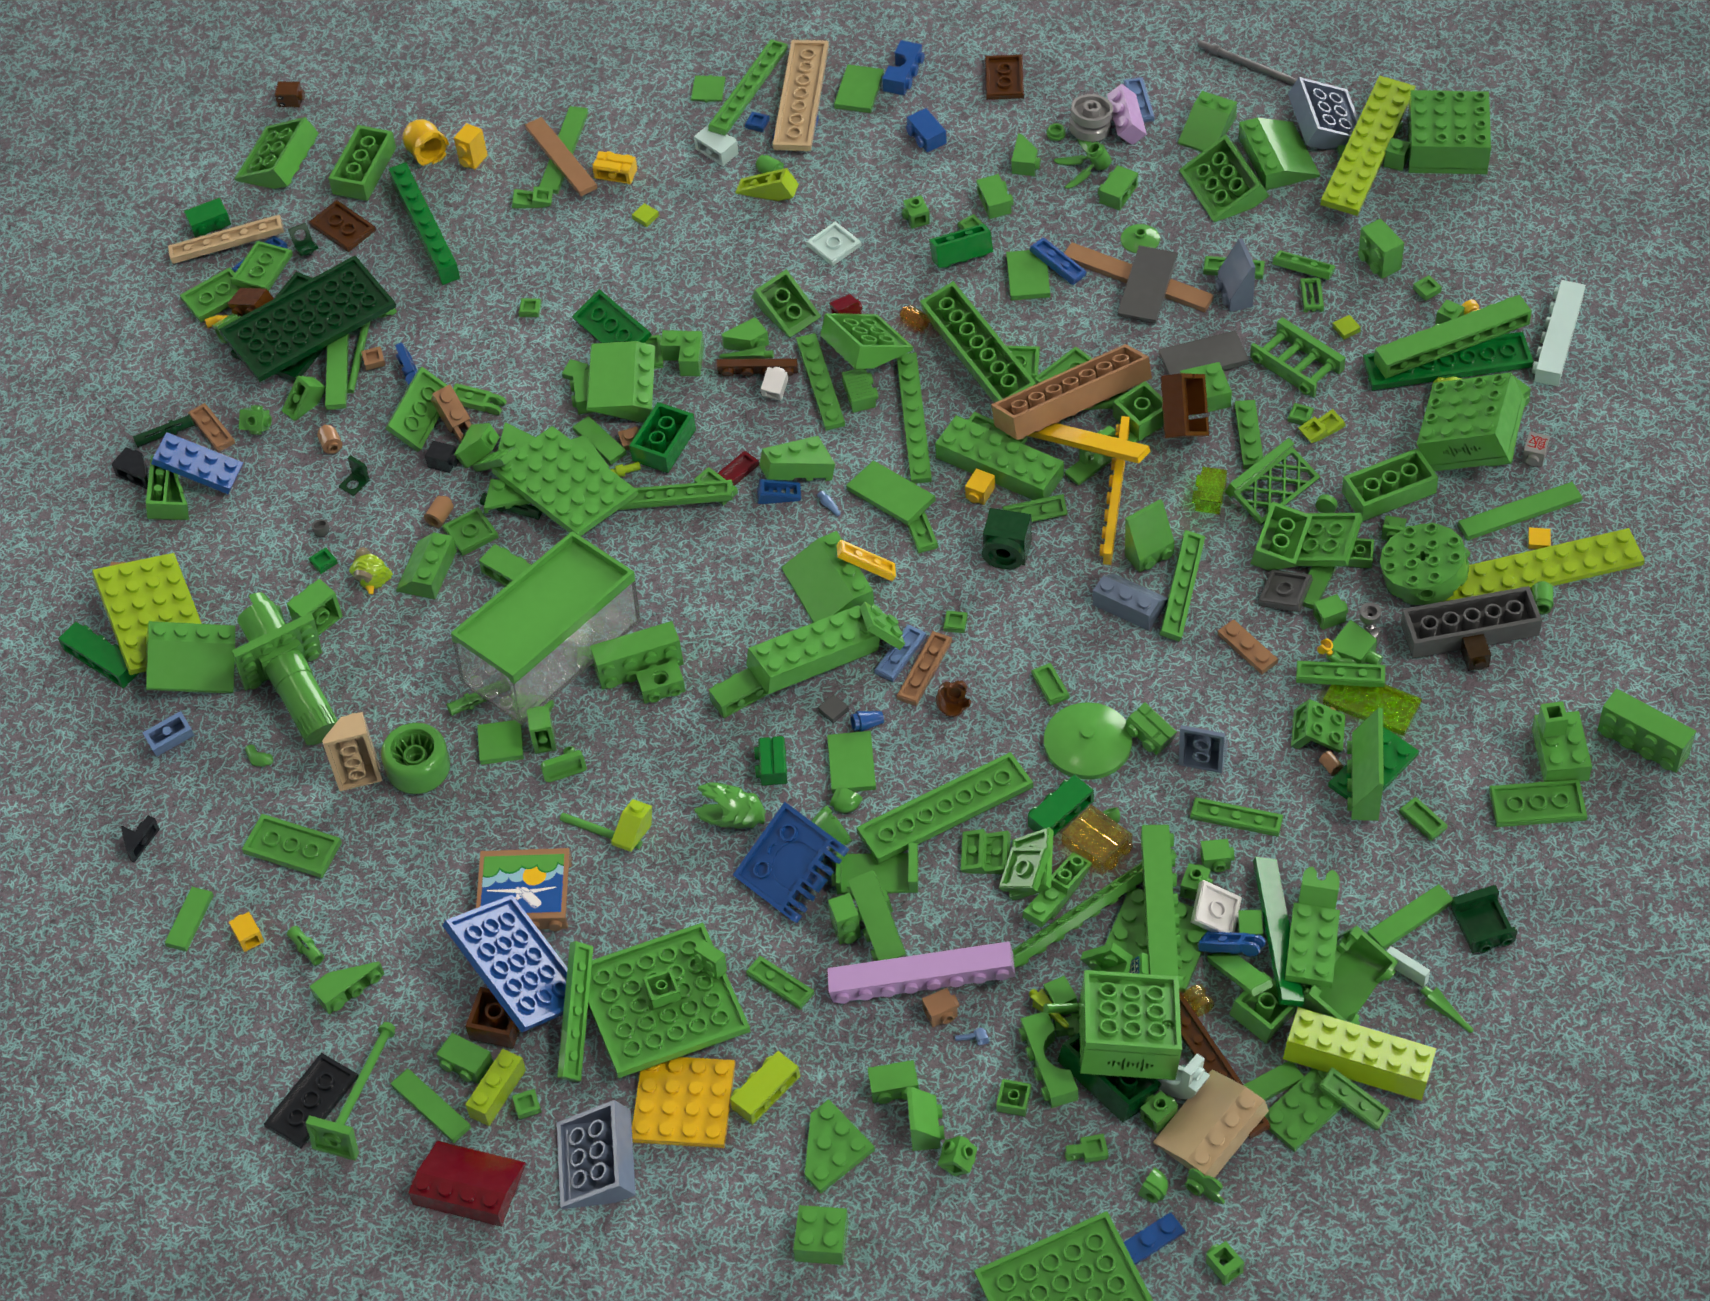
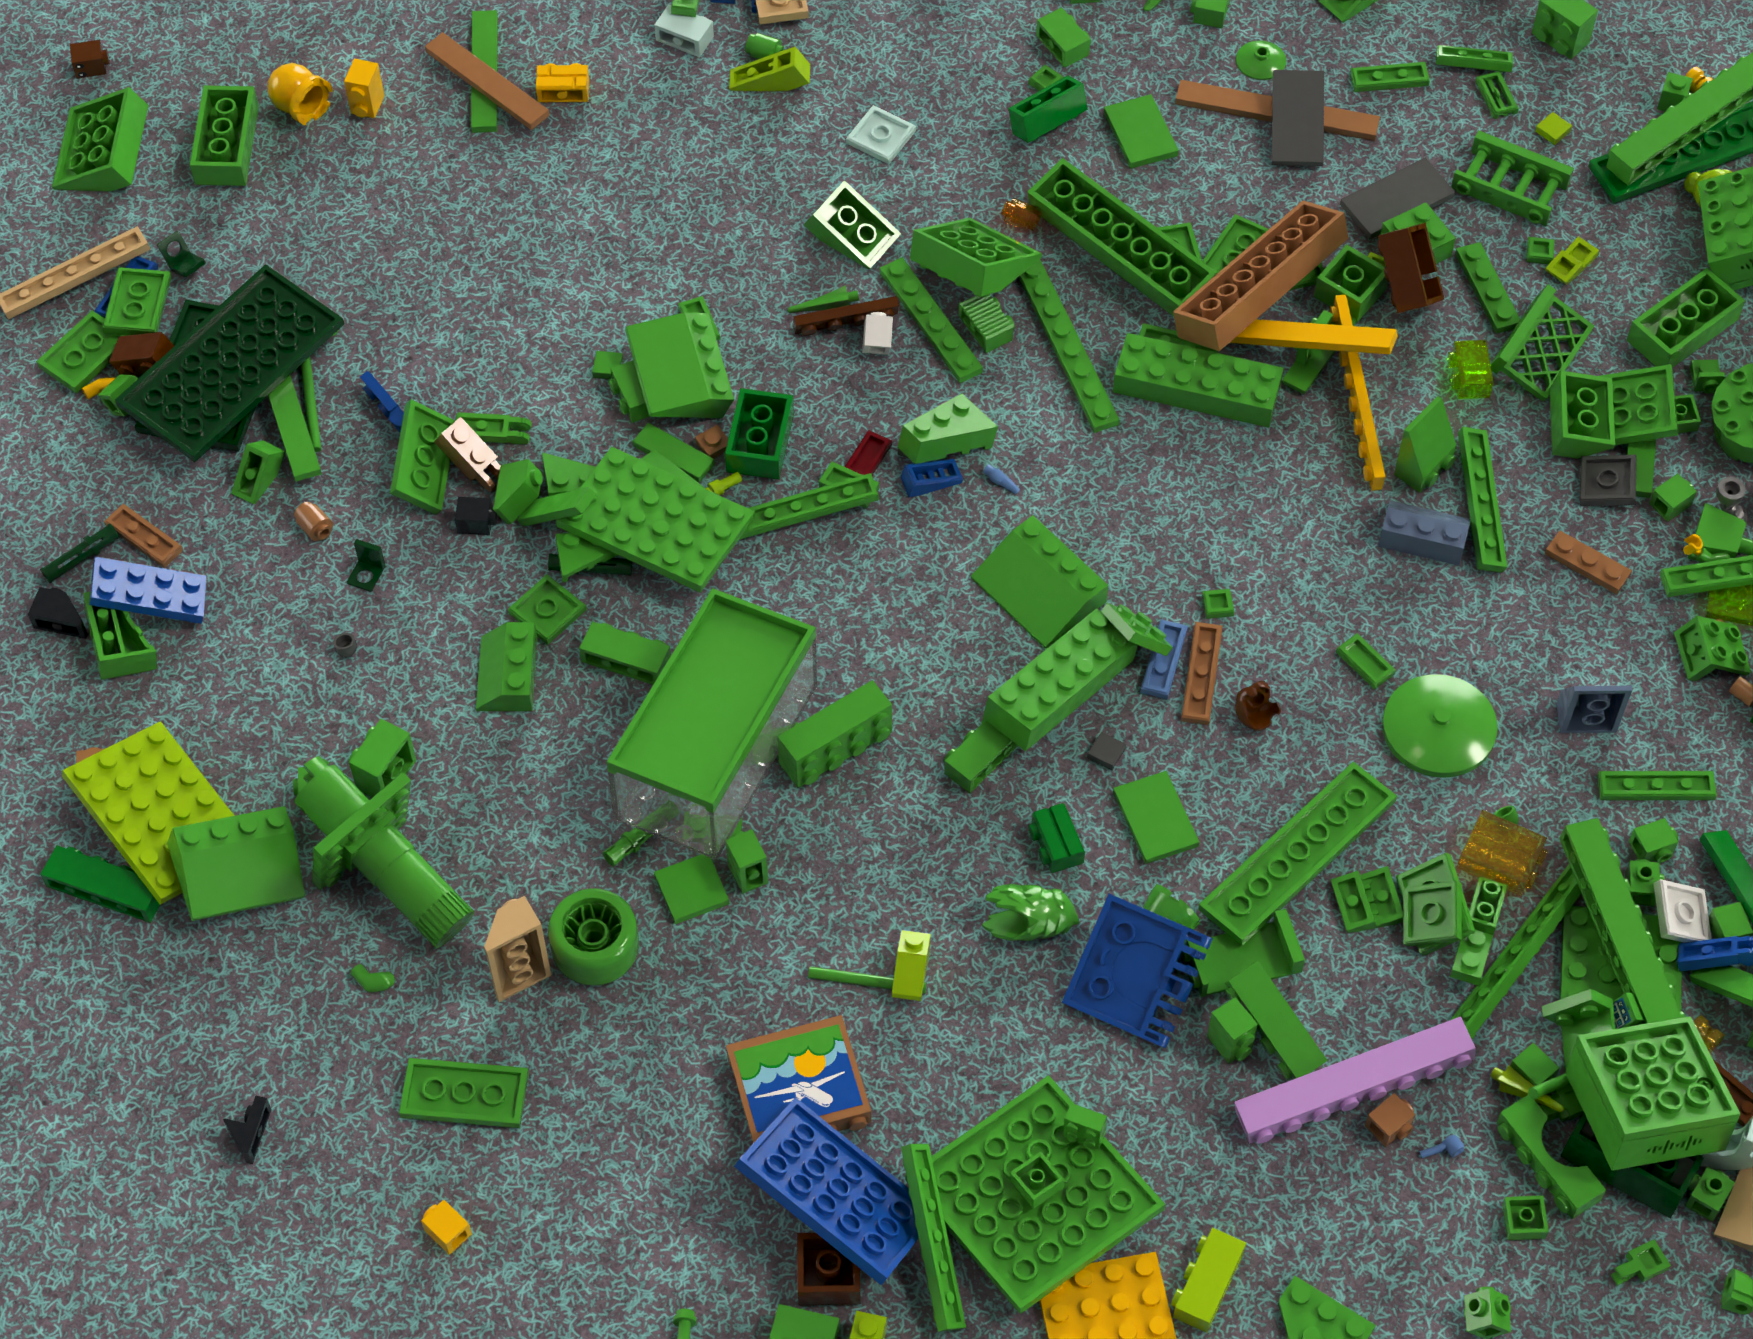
camera: 20 degrees left, 5 degrees up
(168, 733) = (242, 975): medium blue brick -> none
(189, 919) = (358, 1226): bright green tile -> none
(207, 217) = (36, 247): green brick -> none
(255, 419) = (195, 518): bright green brick -> none
(297, 937) = (548, 1238): bright green pin -> none
(323, 560) = (363, 689): green tile -> none
(341, 985) = (600, 1274): bright green slope -> none
(342, 226) = (224, 225): reddish brown tile -> none
(369, 570) = (433, 690): lime hair -> none
(373, 358) = (332, 398): medium nougat plate -> none
(424, 223) = (337, 203): green brick -> none
(439, 511) = (497, 591): medium nougat brick -> none
(530, 307) = (516, 291): bright green tile -> none
(537, 198) = (471, 143): bright green slope -> none
(563, 766) = (790, 903): bright green piece -> none
(609, 321) = (632, 291): green plate -> none
(645, 215) = (623, 139): lime tile -> none
(651, 681) = (882, 750): bright green brick -> none
(684, 347) = (745, 307): bright green brick -> none
(745, 336) = (816, 278): bright green slope -> none
(780, 982) = (1173, 1132): bright green tile -> none
(845, 800) = (1169, 870): bright green piece -> none
(846, 305) = (931, 213): dark red brick -> none
(865, 720) = (1155, 757): blue cone -> none
(866, 560) = (1083, 546): yellow tile -> none
(891, 493) = (1076, 450): bright green tile -> none
(891, 1081) = (1369, 1233): bright green brick -> none
(916, 212) = (972, 74): bright green brick -> none
(923, 534) = (1125, 485): bright green tile -> none
(924, 1120) = (1427, 1276): bright green slope -> none
(980, 487) = (1186, 420): yellow brick -> none
(1006, 538) = (1249, 482): dark green piece -> none
(1041, 508) = (1264, 438): bright green tile -> none
(1058, 261) = (1173, 107): blue tile -> none
(1061, 806) = (1441, 819): green brick -> none
(1150, 729) = (1515, 694): bright green brick -> none
(1237, 278) = (1409, 89): sand blue slope -> none
(1326, 504) = (1616, 360): bright green tile -> none
(1427, 288) = (1632, 61): bright green plate -> none

